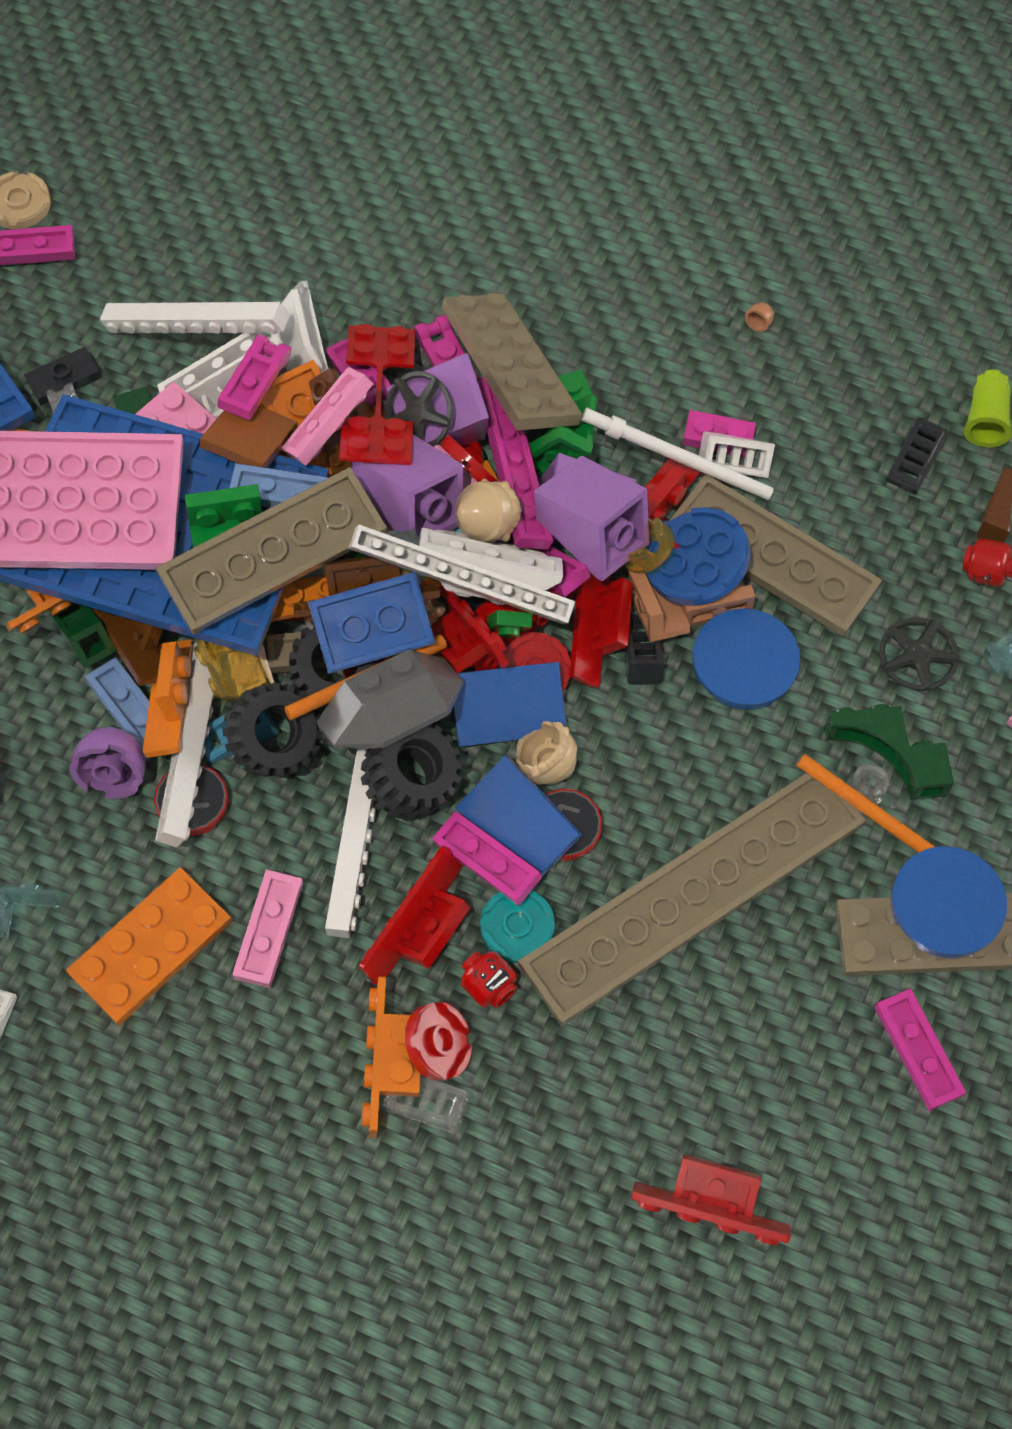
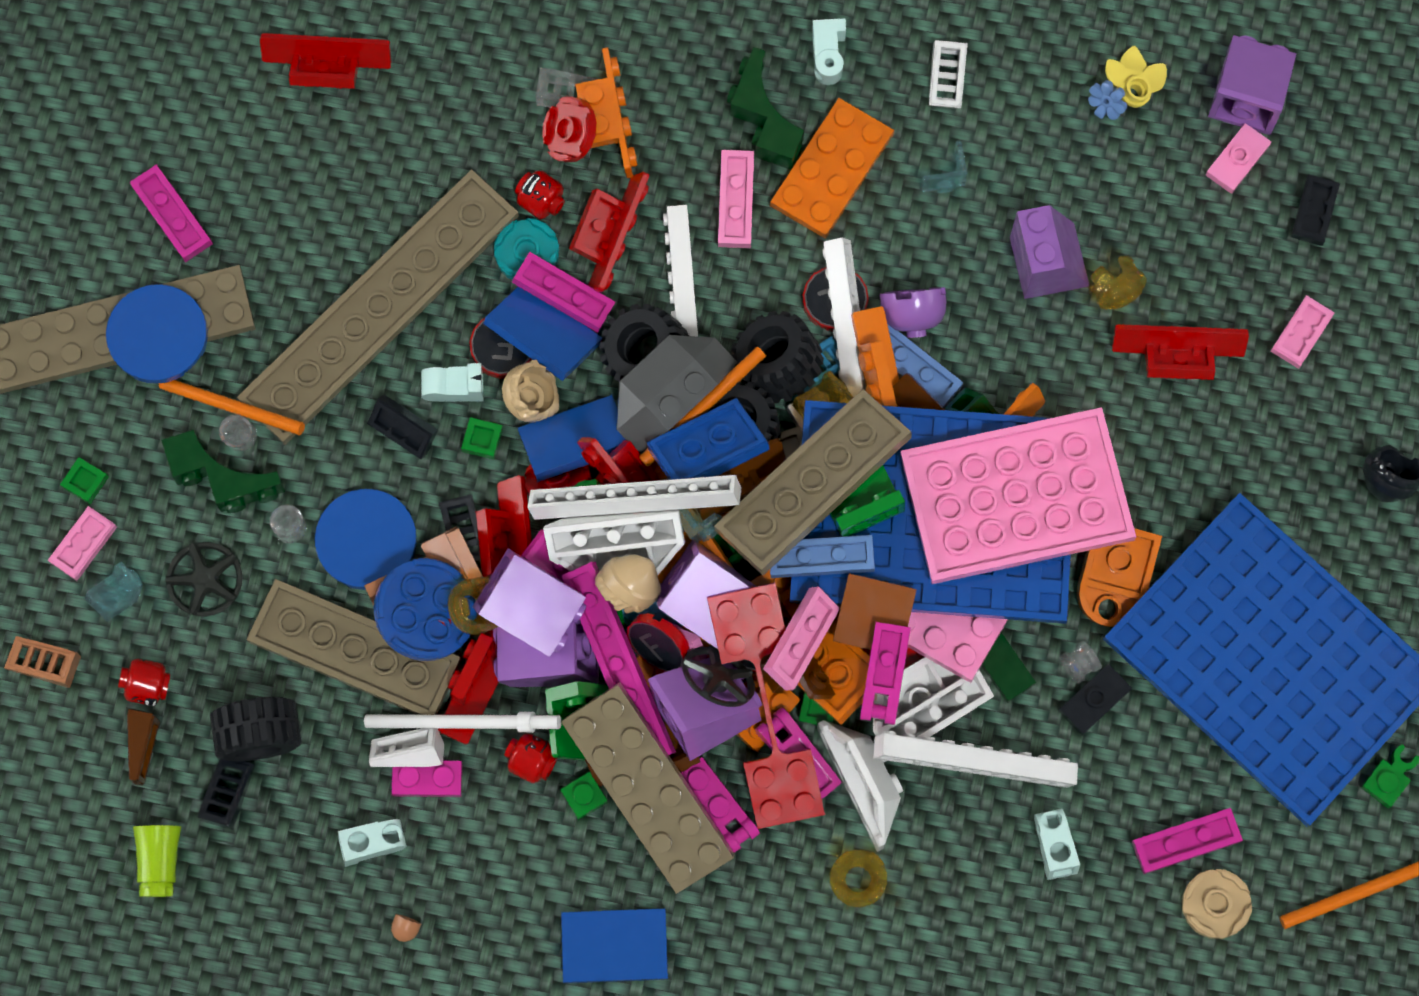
camera: 170 degrees right, 10 degrees up
(111, 1083) = (827, 60): none -> light aqua leg
(143, 262) = (1056, 844): none -> light aqua leg
(220, 1038) = (775, 137): none -> dark green arch
(327, 262) = (863, 859): none -> clear yellow piece
(570, 269) = (614, 946): none -> blue tile
(606, 728) = (482, 438): none -> green plate
(621, 409) = (530, 758): none -> red head
(627, 790) = (453, 383): none -> light aqua leg
(689, 756) = (402, 426): none -> black plate
(782, 385) = (371, 841): none -> light aqua leg
(820, 692) = (289, 531): none -> clear wheel
(883, 482) = (255, 728): none -> black tyre

